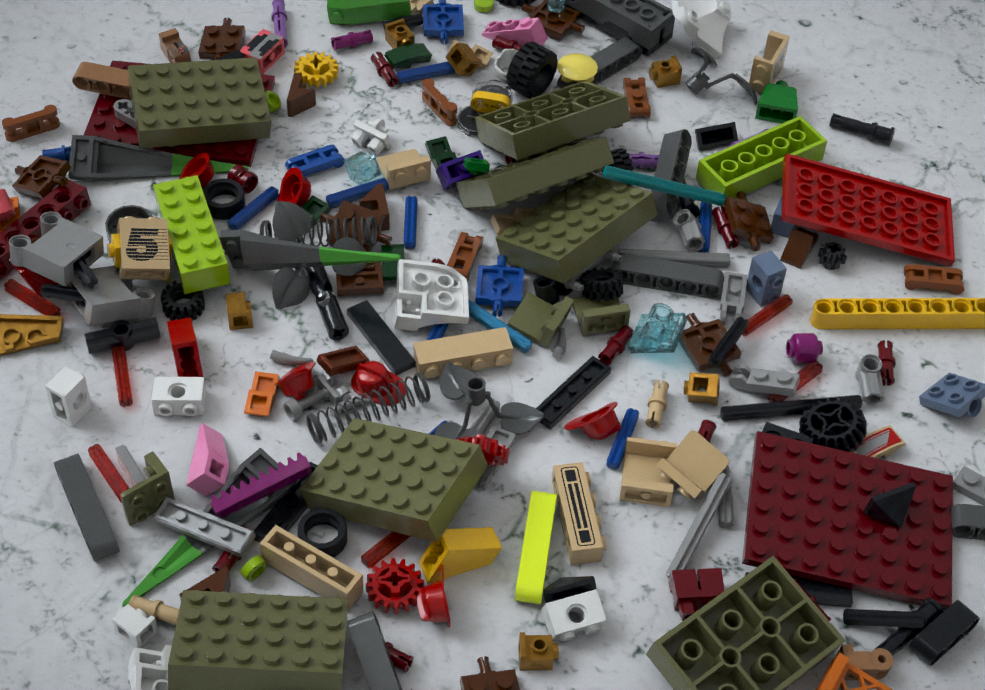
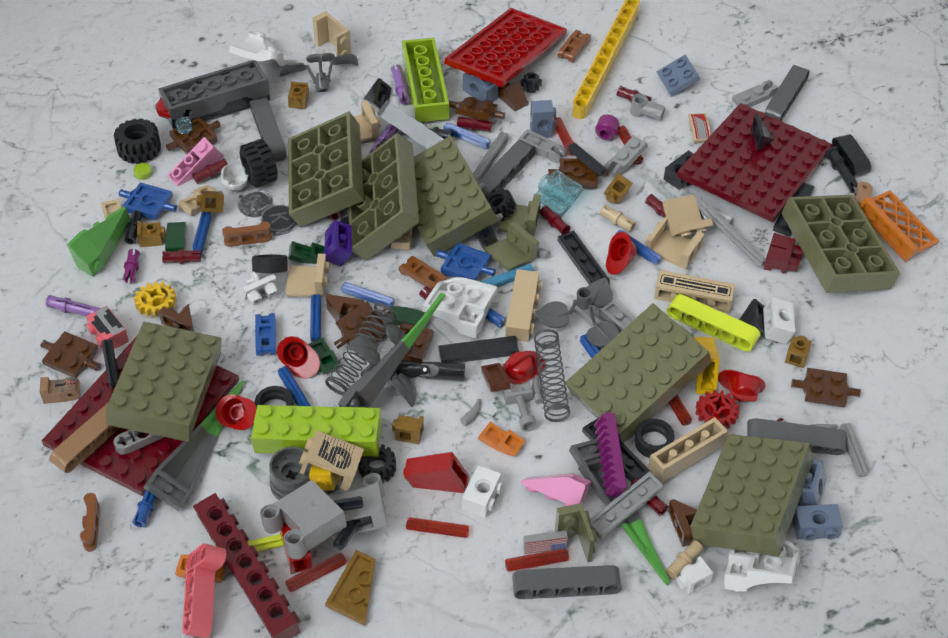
camera: 65 degrees left, 0 degrees up
(41, 176) = (172, 527): reddish brown plate -> none
(68, 396) = (455, 561): white brick -> none
(122, 334) = (396, 522): black piece -> none
(246, 179) = (256, 385): dark red wheel -> none
(253, 568) = (670, 488): lime tile -> none
(297, 381) = (501, 409): red piece -> none
(362, 167) = (295, 302): clear light blue brick -> none
(401, 128) = (269, 263): none -> black tyre
(476, 166) = (351, 227): green plate -> none
(489, 100) = (273, 201): yellow beam -> none
(494, 453) = (635, 310): red gear -> none
(577, 68) = (273, 135): light yellow dish -> none
(637, 98) = (309, 120): dark orange plate -> none
(649, 132) = (368, 122): none -> tan bracket
(663, 185) = (435, 132): teal axle -> none
(689, 230) = (473, 141): light grey piece -> none
(777, 103) = (370, 50): green torso -> none
(779, 408) = (649, 156): black axle -> none
(831, 421) = (683, 133): black gear -> none
(872, 131) = (424, 18): black pin -> none
(884, 618) = (834, 175): black axle -> none

